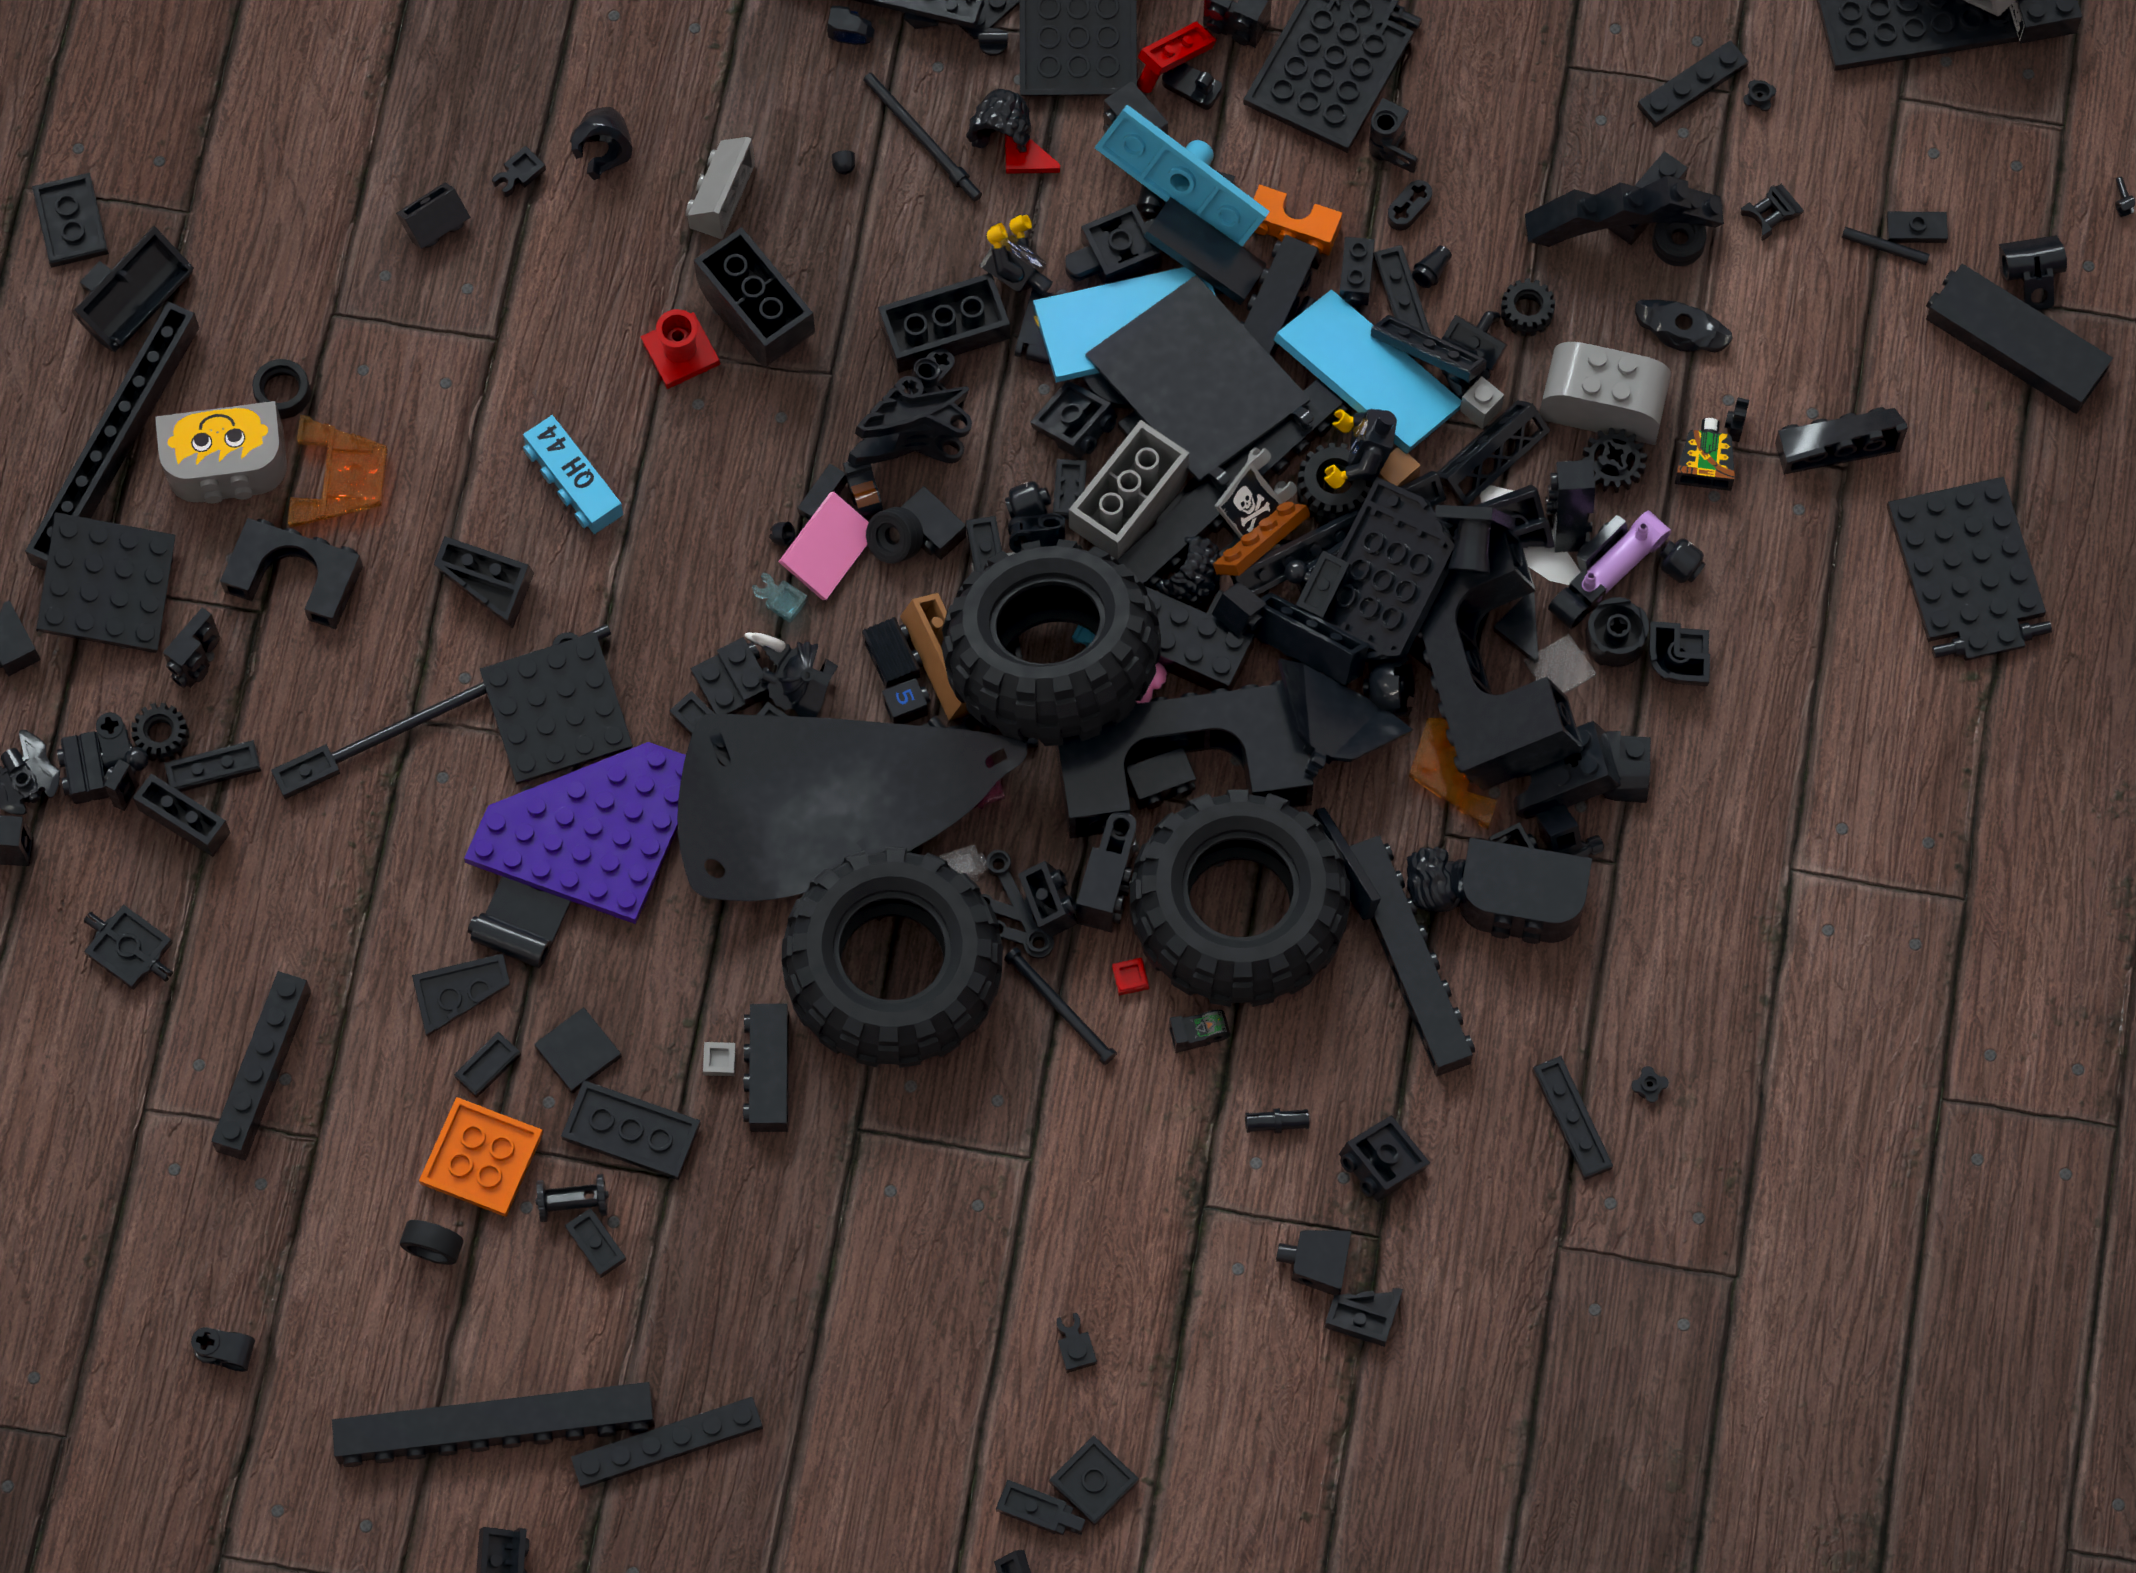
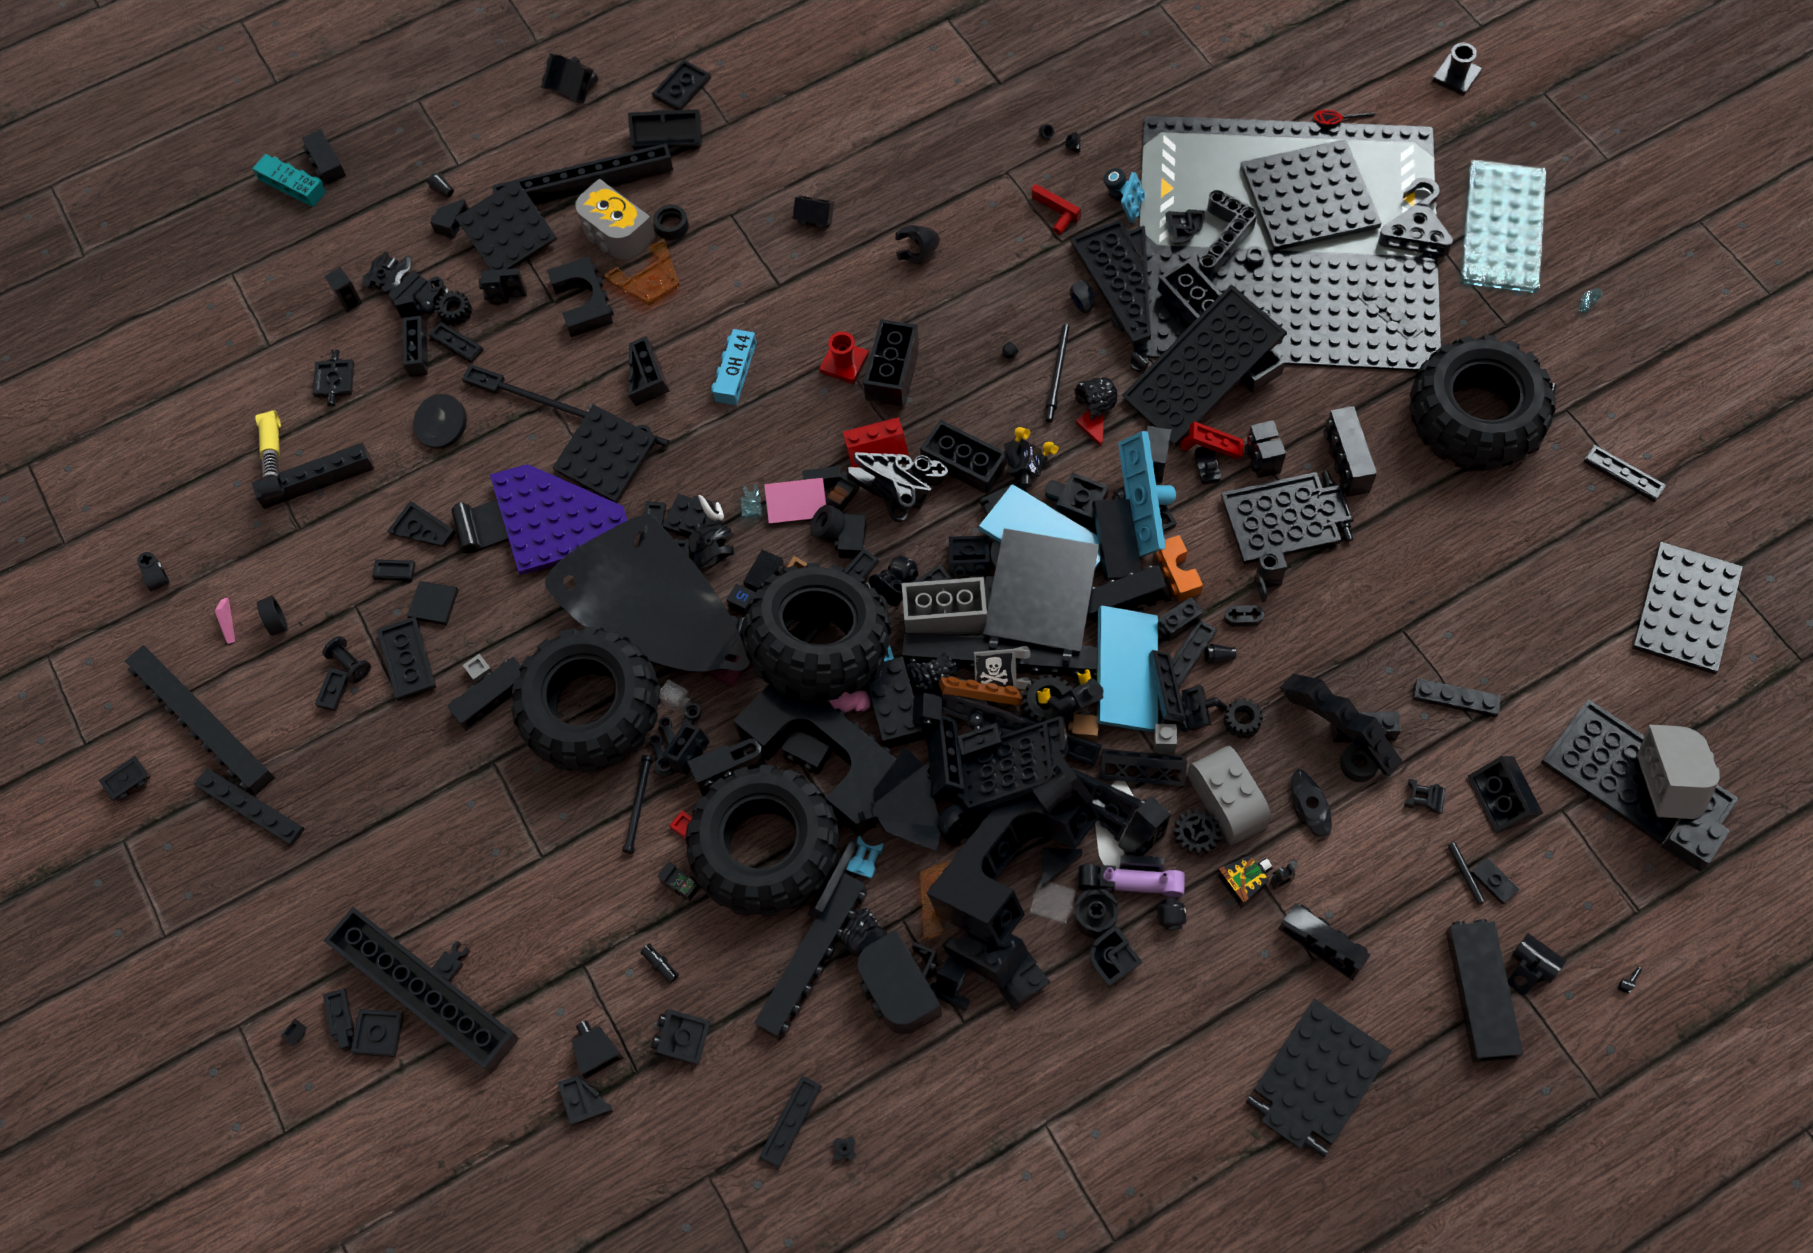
camera: 55 degrees right, 5 degrees down
(129, 1070) = (269, 453): none -> piece
(324, 863) = (440, 421): none -> black piece
(375, 1304) = (224, 618): none -> bright pink tile
(481, 1157) = (340, 604): orange plate -> none
(521, 169) = (874, 227): black plate -> none
(721, 187) = (943, 311): light grey slope -> none
(782, 533) = (791, 476): black hinge -> none
(836, 404) = (880, 437): none -> red slope
(1086, 1393) = (422, 990): none -> black brick
(1355, 821) = (864, 867): none -> medium azure piece
(1759, 87) = (1485, 730): black plate -> none
(1838, 134) = (1505, 794): none -> black slope

